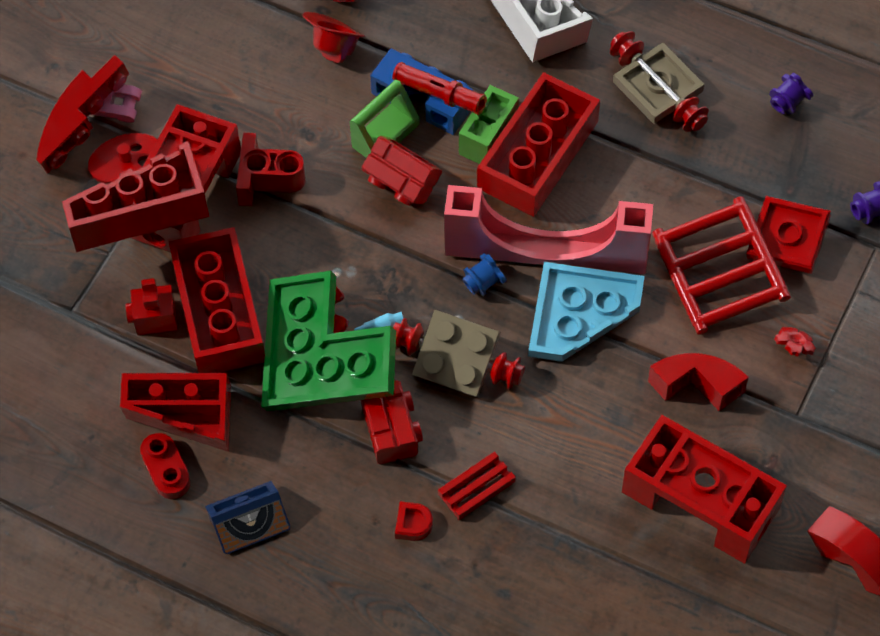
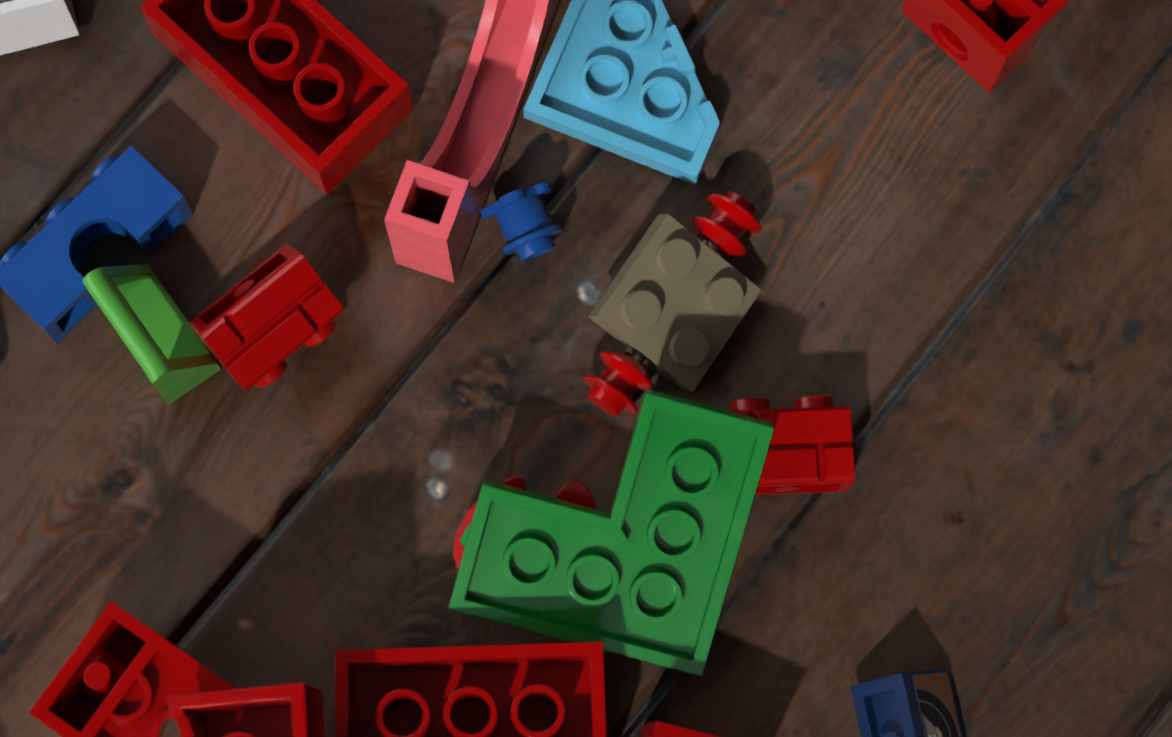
camera: 80 degrees left, 15 degrees up
(273, 173) = (186, 556): red tile -> none
(385, 320) = (573, 422): medium azure piece -> none
(413, 521) = (976, 452): red tile -> none
(451, 92) = (126, 200): red pin -> none
(483, 129) = (214, 137): bright green brick -> none
(500, 468) = (909, 280): red tile -> none

